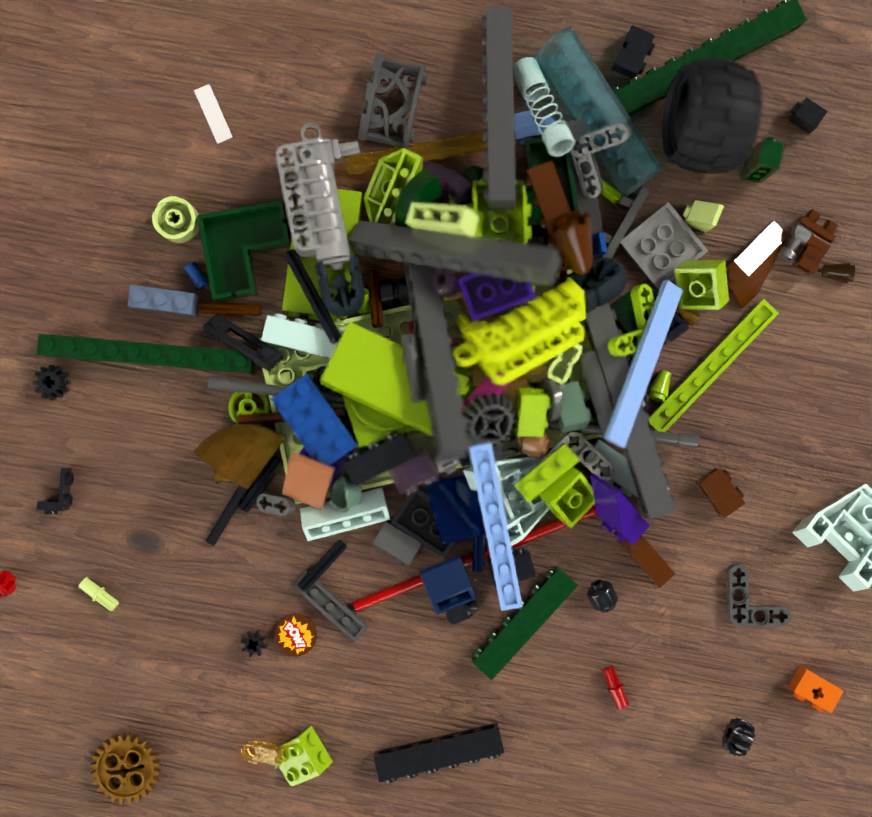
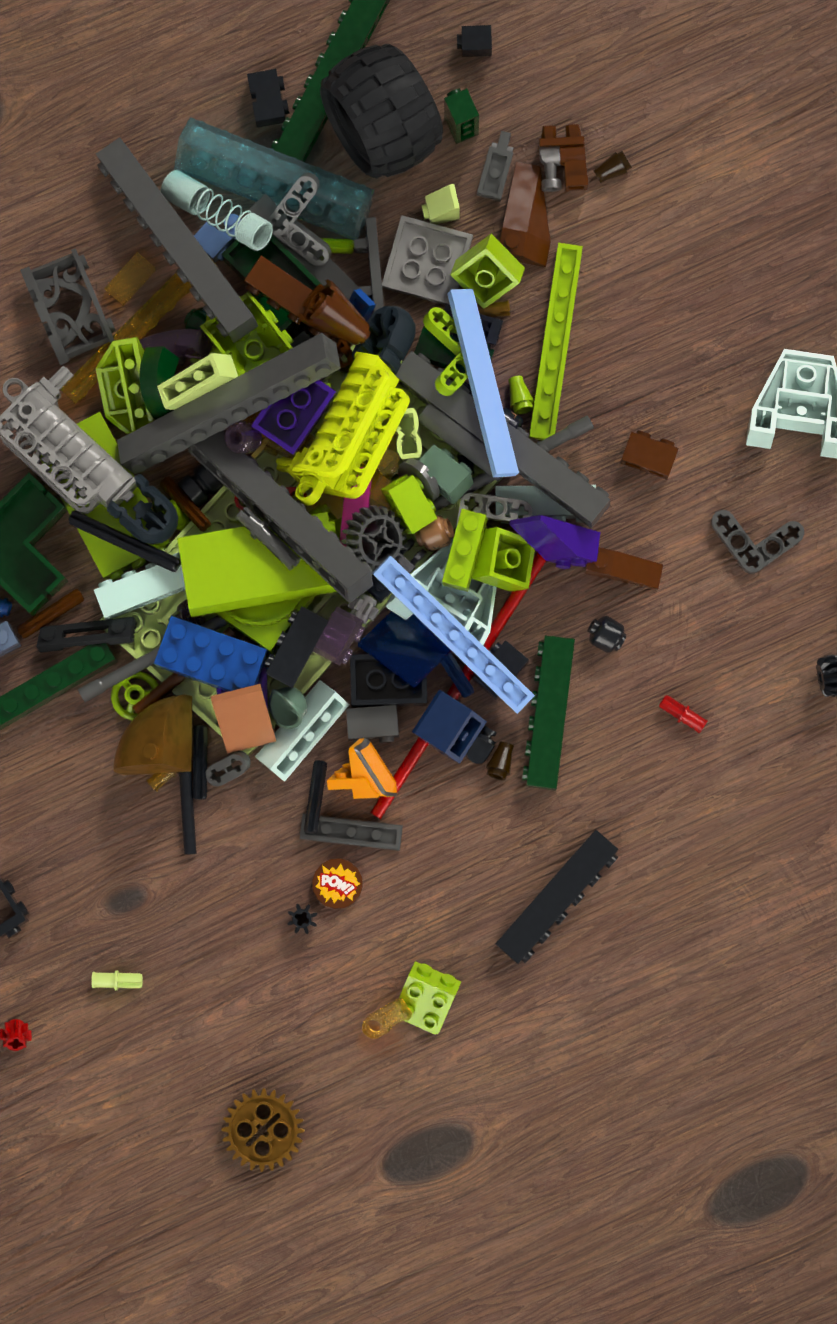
camera: 25 degrees left, 5 degrees down
(364, 578) = (364, 774): none -> light orange piece
(448, 113) = (130, 279): none -> clear yellow tile
(465, 632) = (500, 763): none -> dark brown cone
(757, 216) = (496, 168): none -> dark grey hinge

